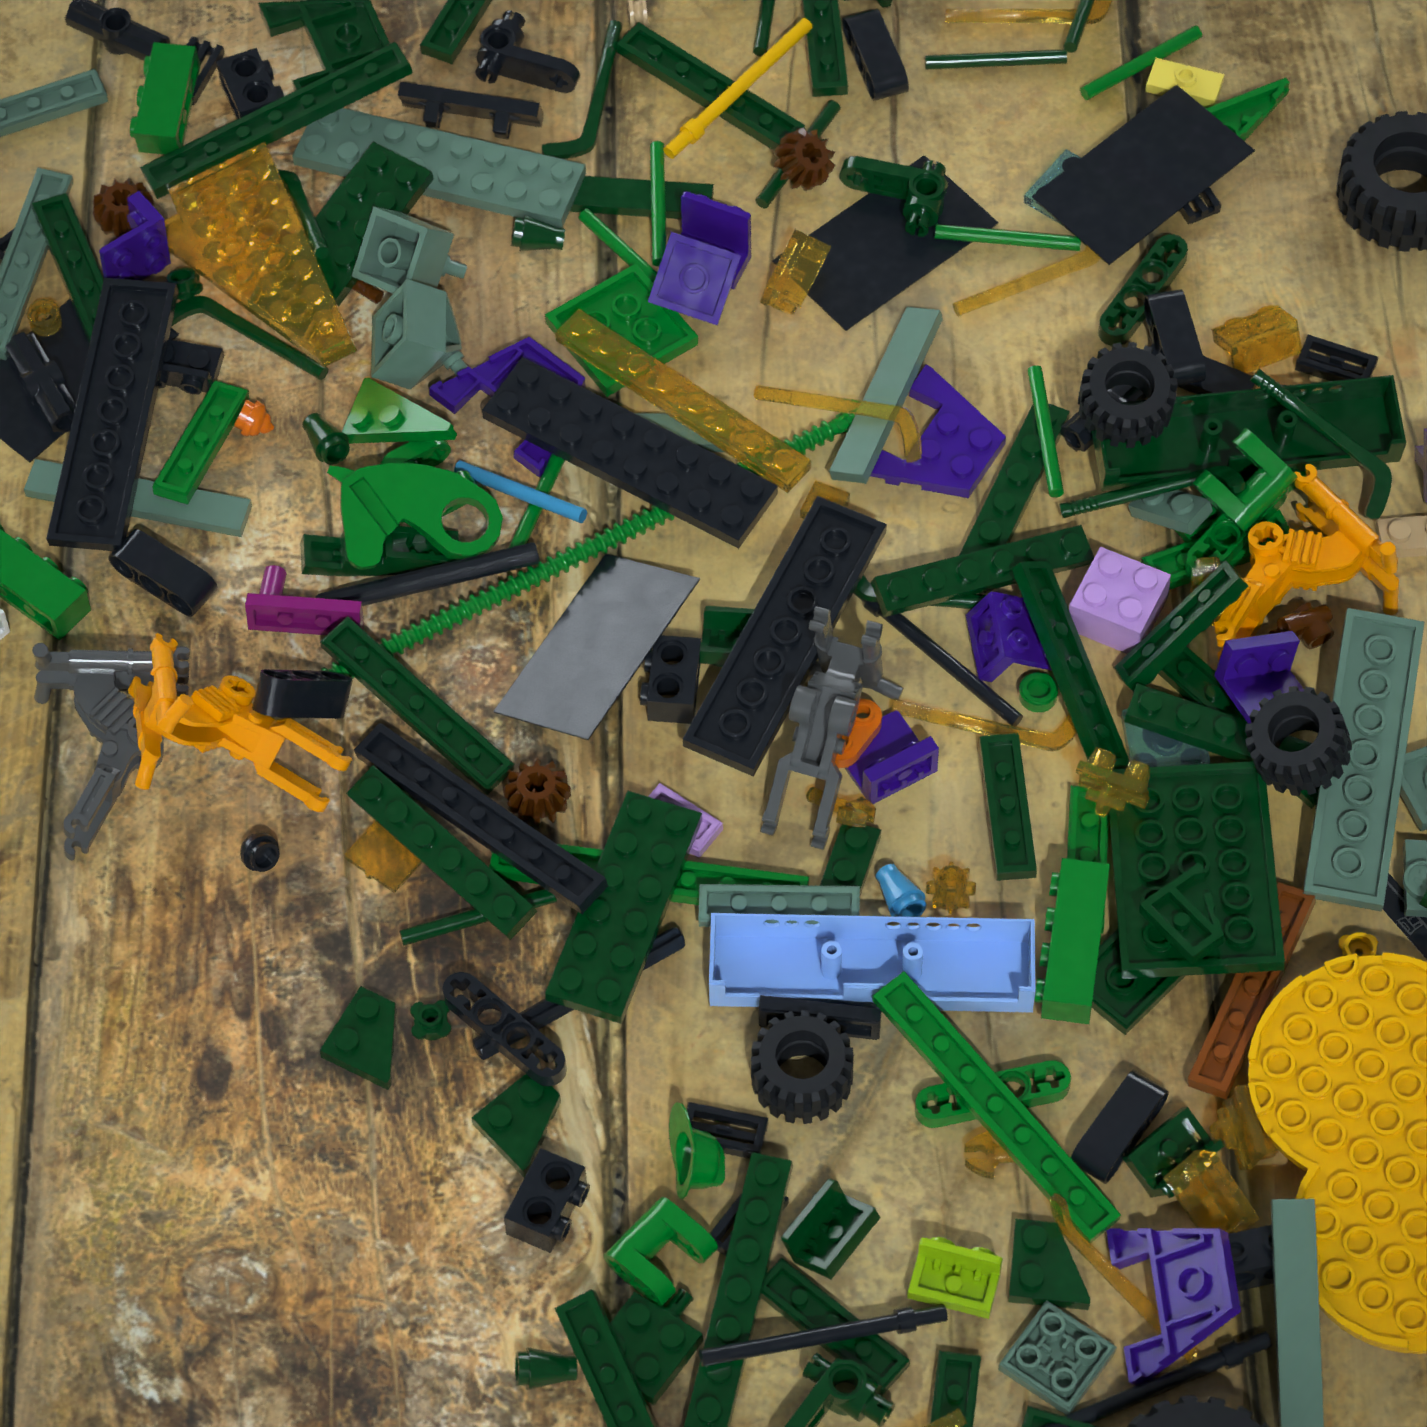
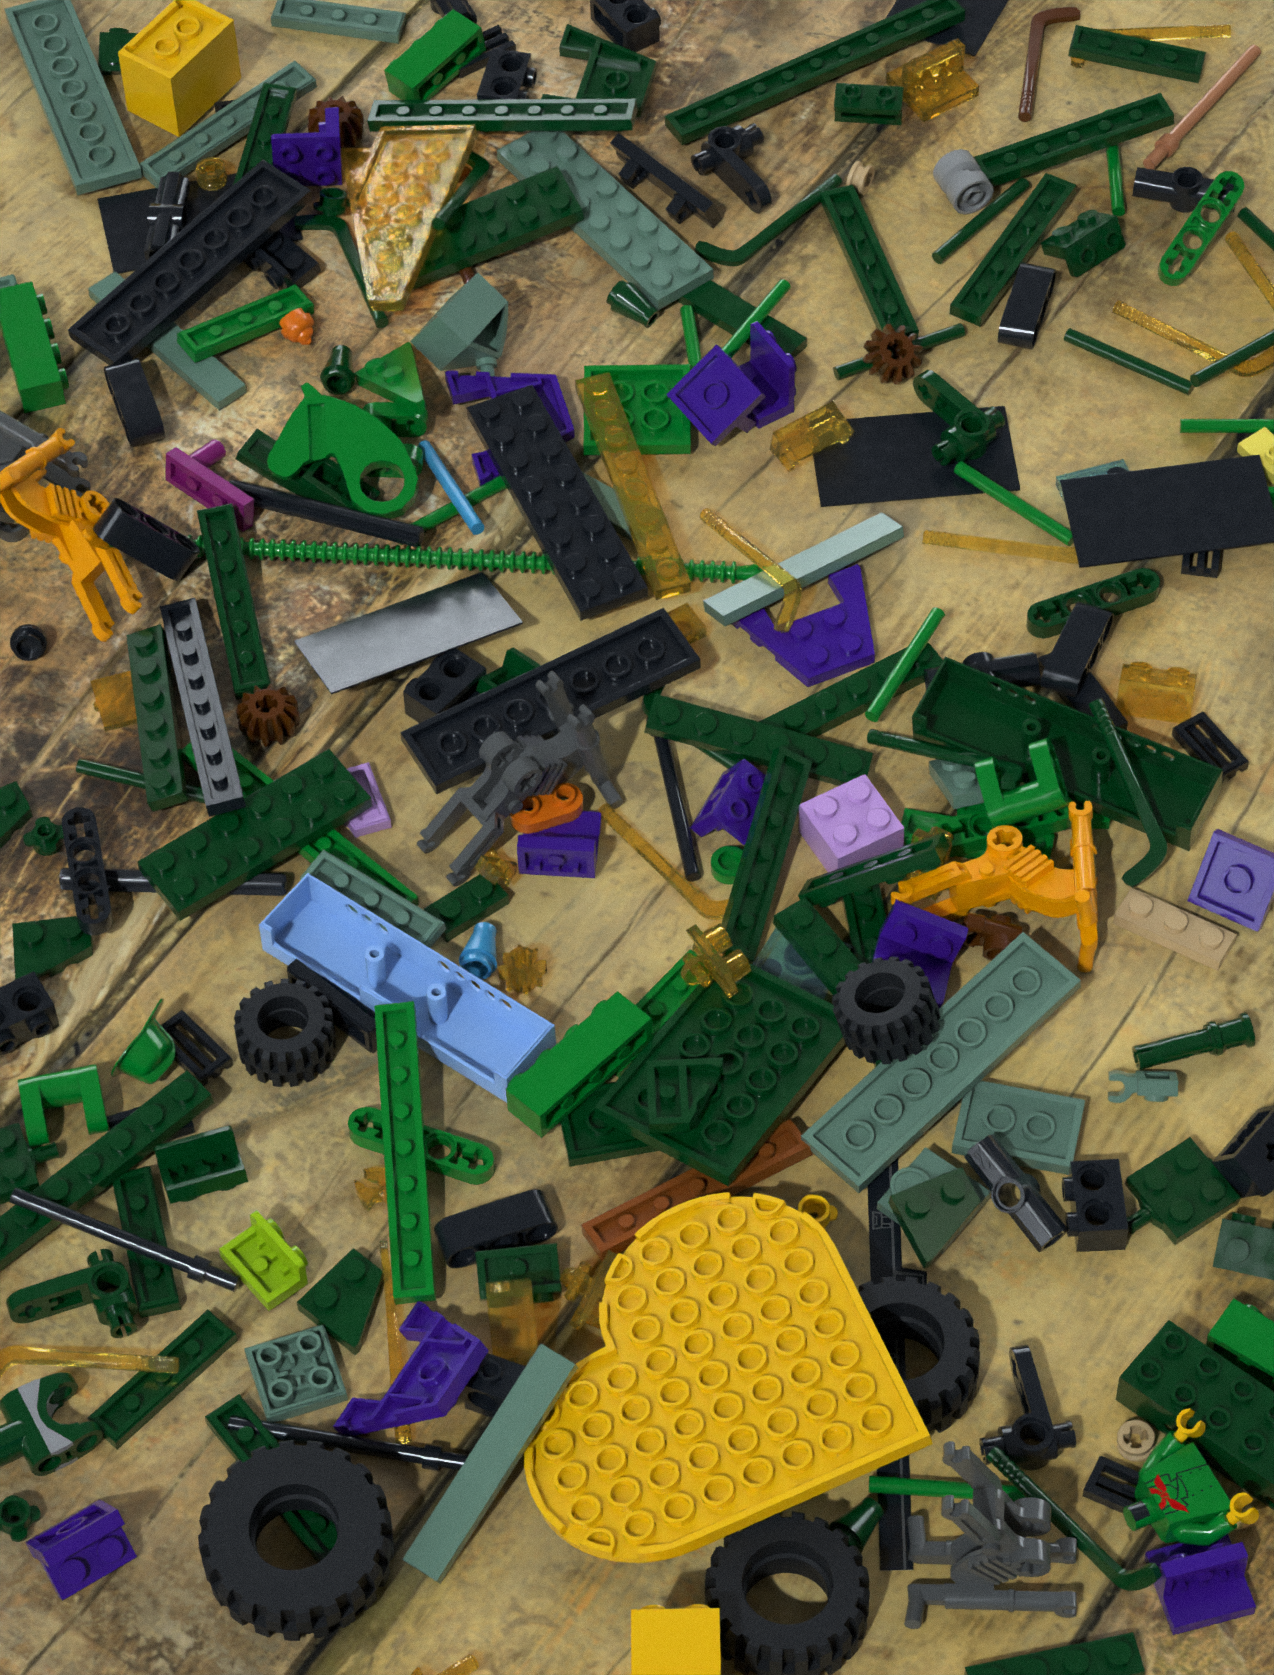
camera: 35 degrees right, 5 degrees down
(403, 249) = (510, 260): sand green piece -> none
(695, 128) = (822, 286): yellow bar -> none
(1007, 807) = (623, 935): dark green plate -> none
(1132, 368) = (963, 632): black tyre -> none

